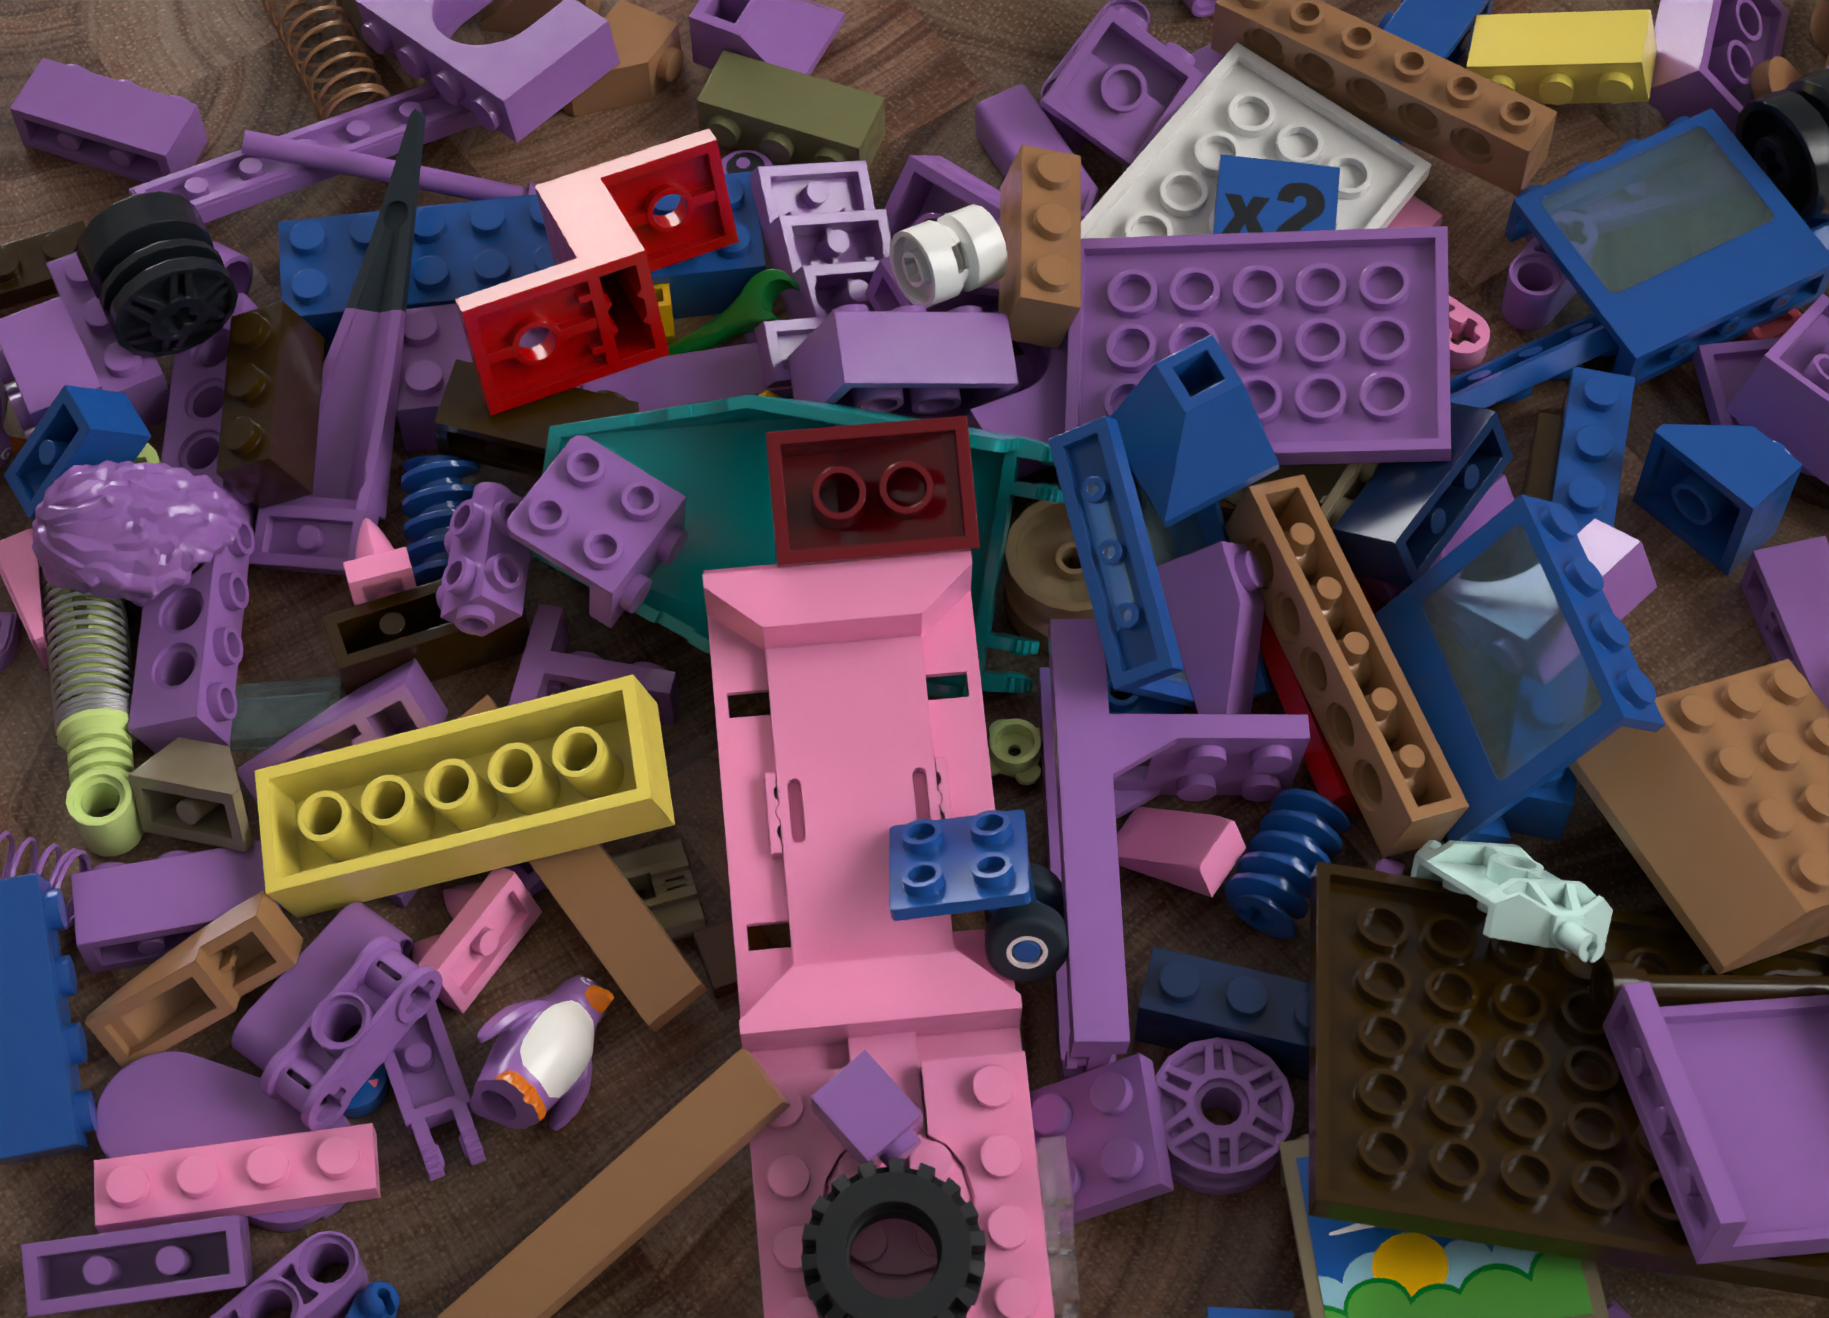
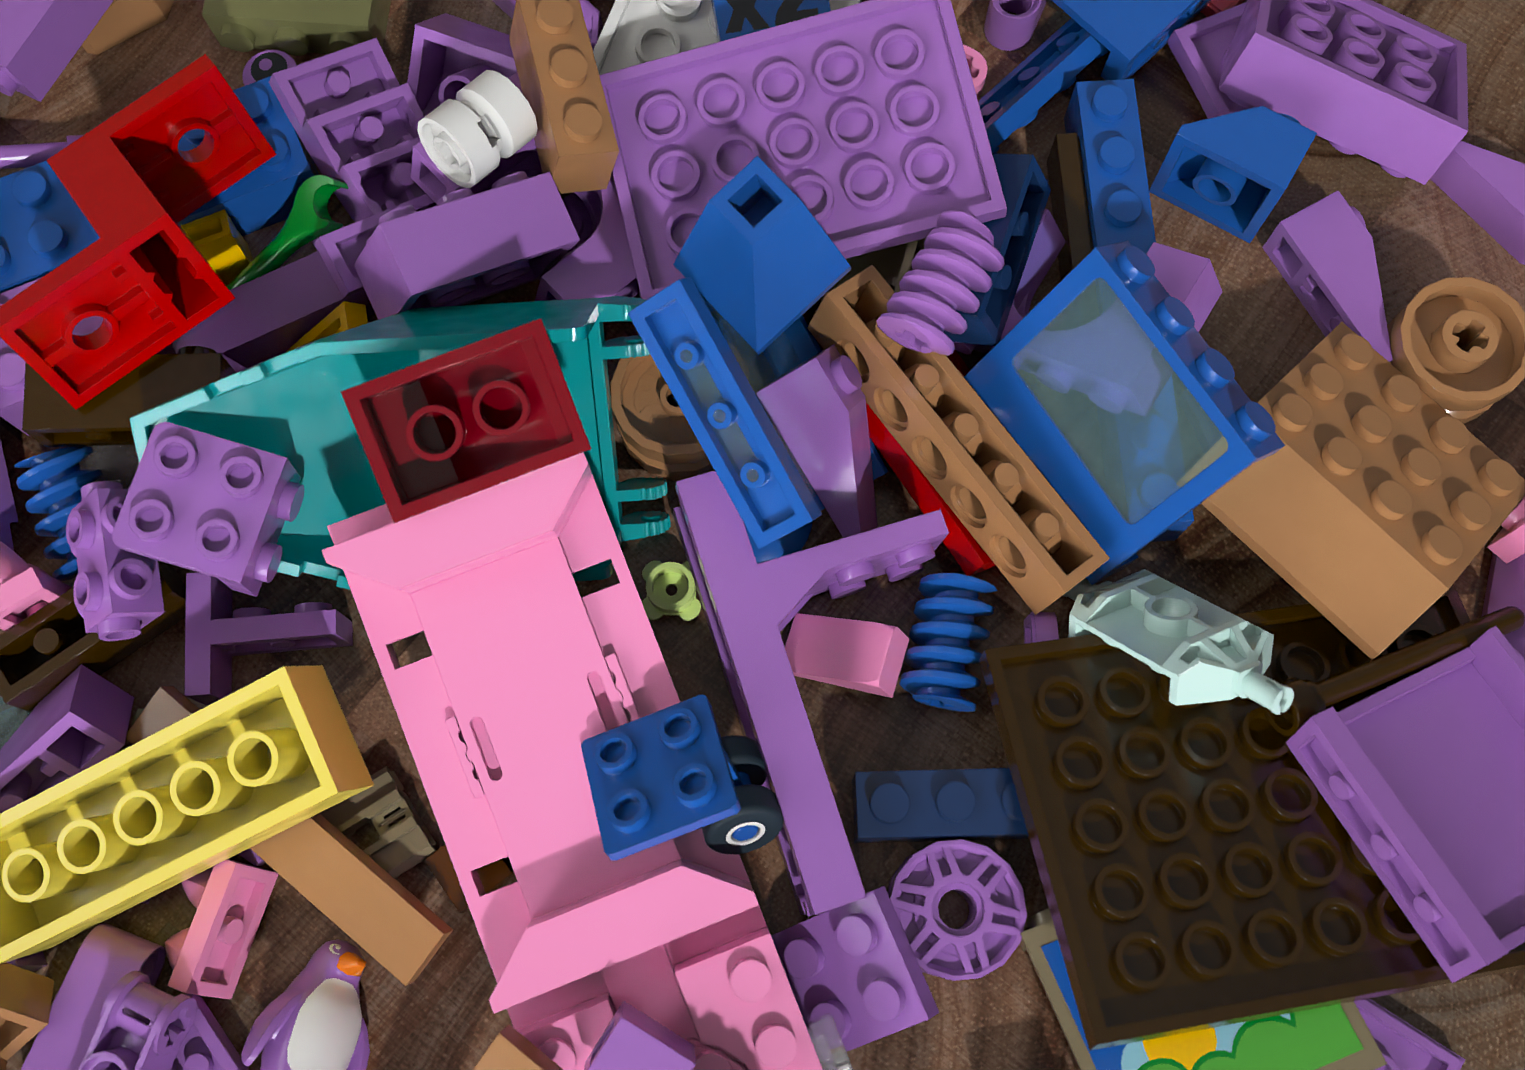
camera: 15 degrees left, 15 degrees up
(1364, 501) = (940, 284): none -> medium lavender piece

